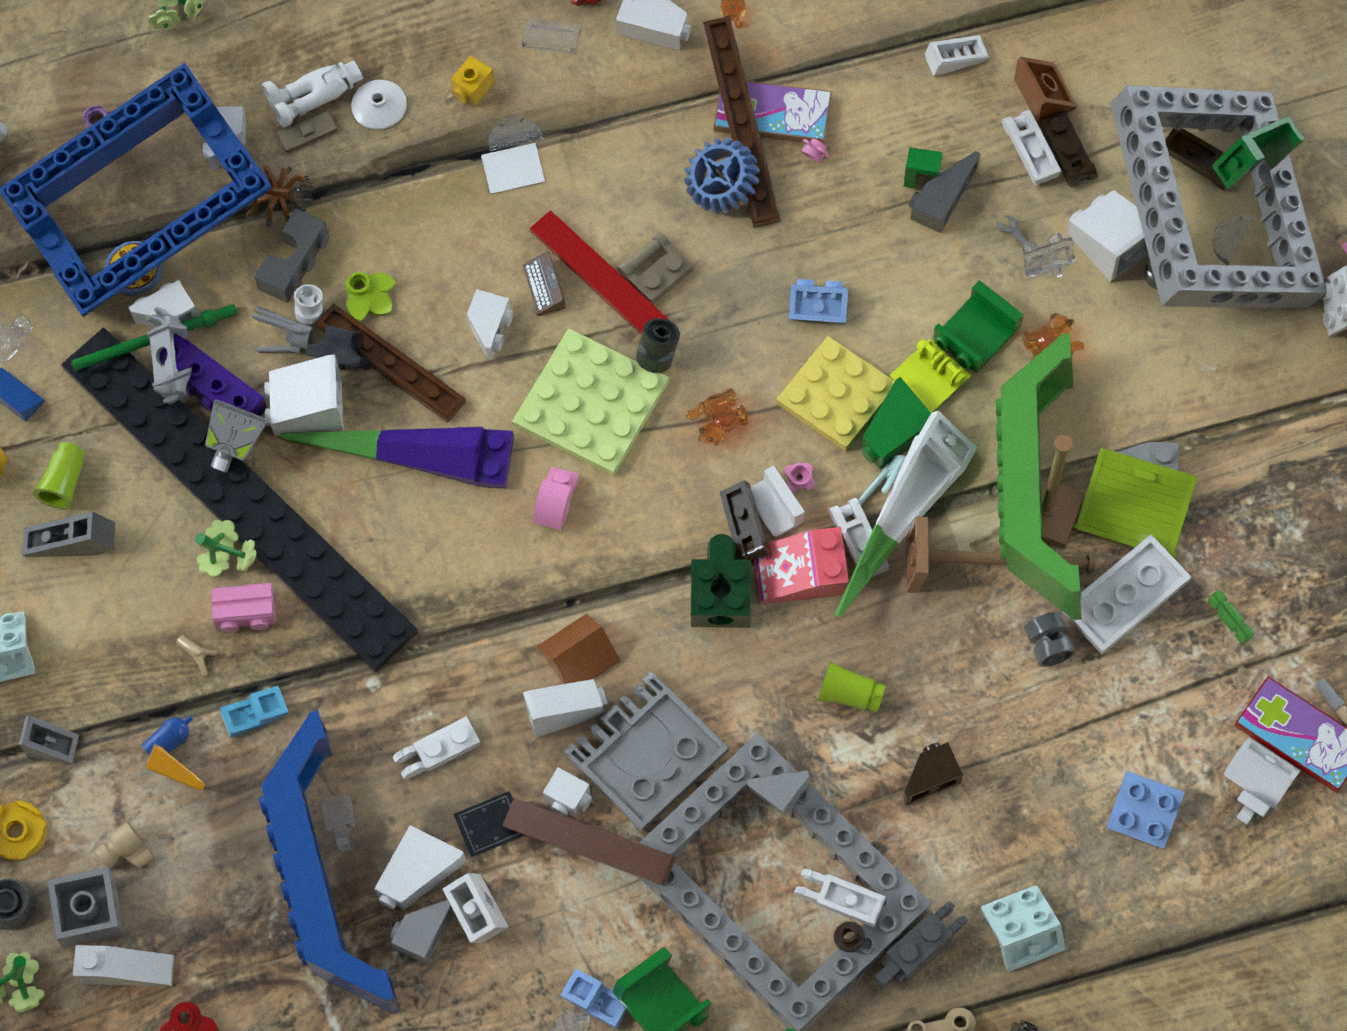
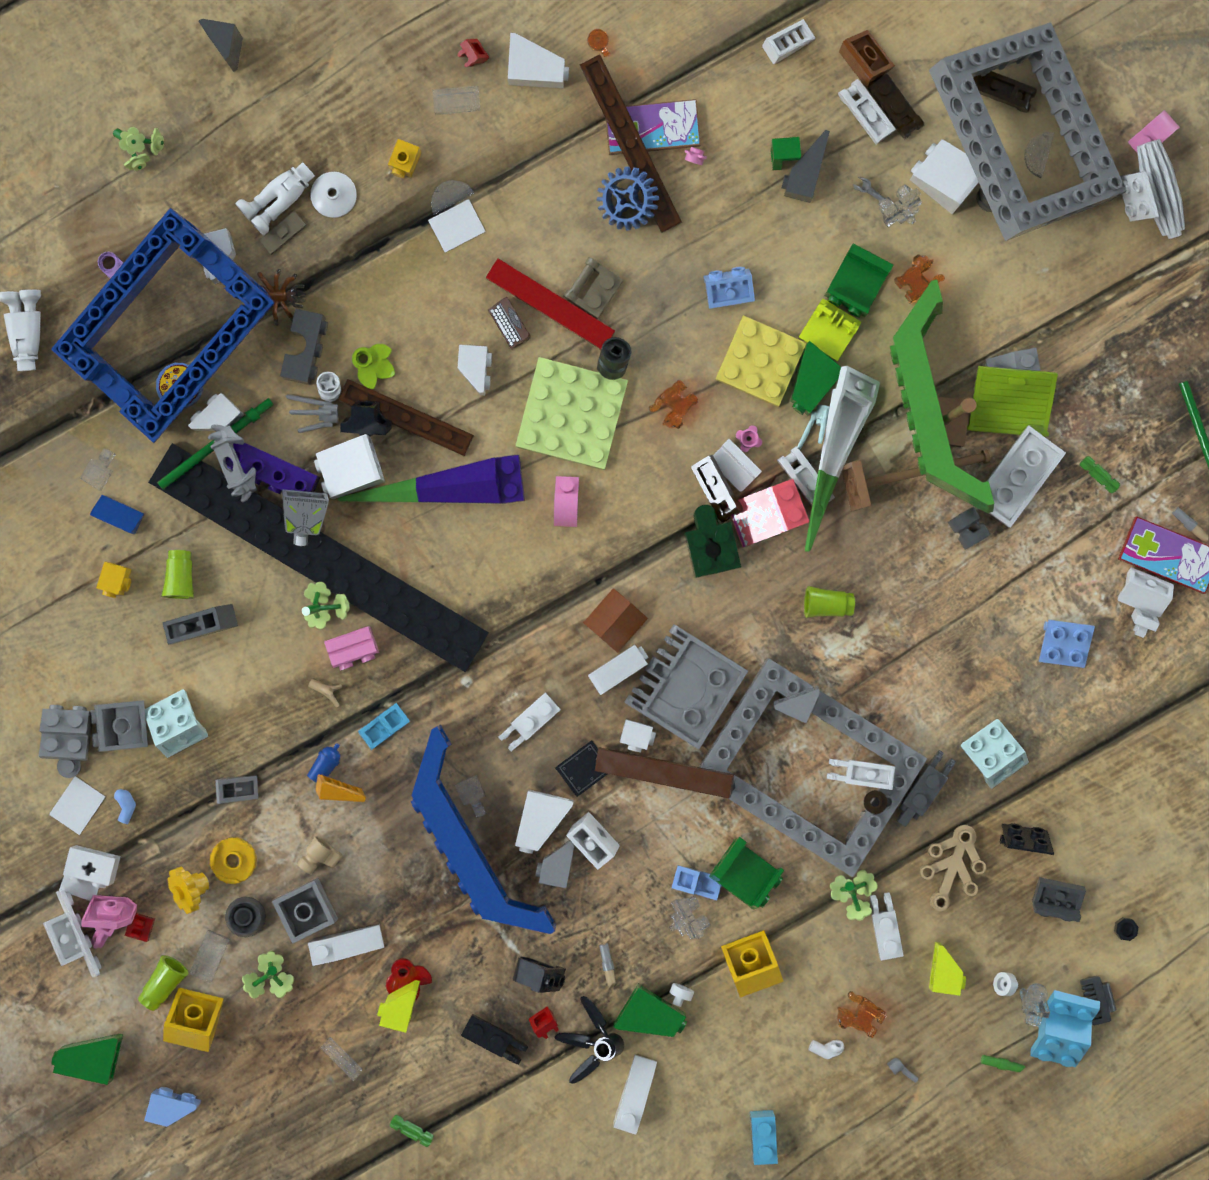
camera: 20 degrees left, 20 degrees up
(933, 773) = (903, 653): dark brown slope -> none
(1268, 143) = (1048, 99): green panel -> none

